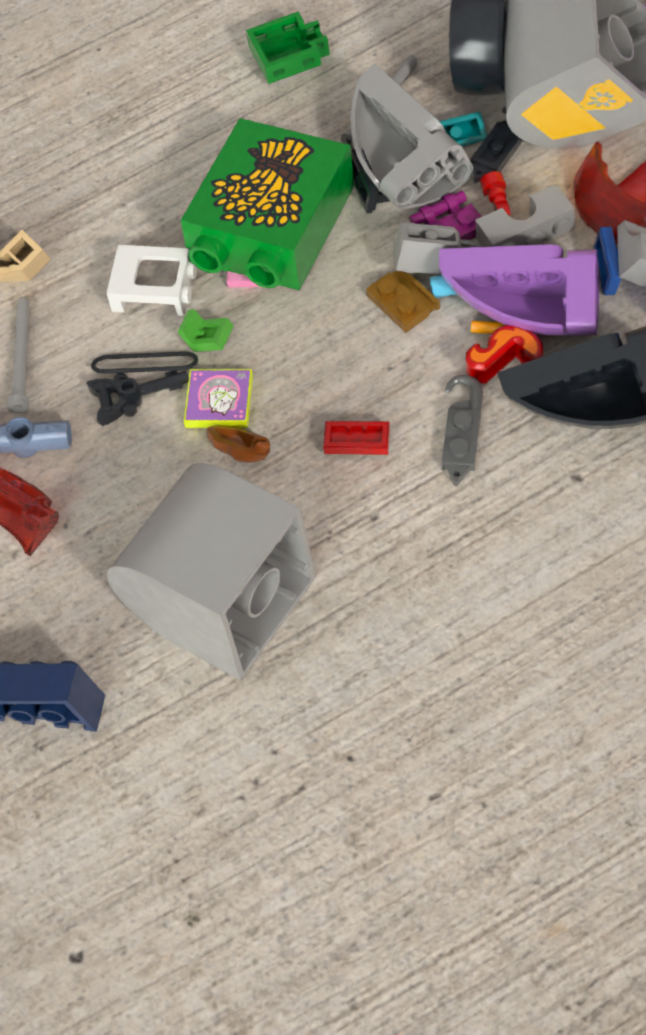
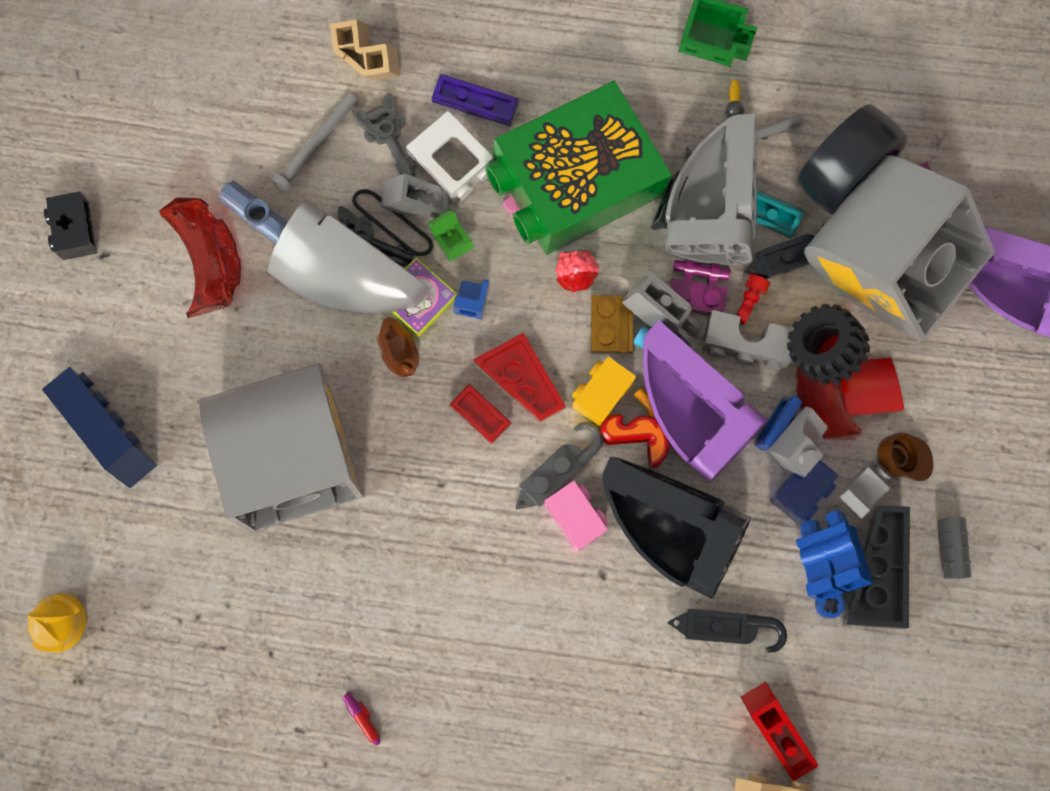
camera: 25 degrees right, 20 degrees up
(76, 305) = (386, 131): none -> dark grey piece
(129, 882) = (57, 623): none -> yellow helmet
(131, 230) = (475, 100): none -> dark purple tile
(134, 412) = (339, 267): none -> light grey panel
(145, 326) = (414, 196): none -> light grey arch
(269, 365) = (471, 299): none -> blue panel
(335, 277) = (576, 270): none -> piece
(346, 81) = (734, 106): none -> piece
(366, 385) = (522, 376): none -> red wing
(444, 344) = (603, 391): none -> yellow brick
(479, 738) = (361, 716): none -> piece
(511, 446) = (576, 516): none -> bright pink brick
(605, 178) = (815, 330): none -> black tyre

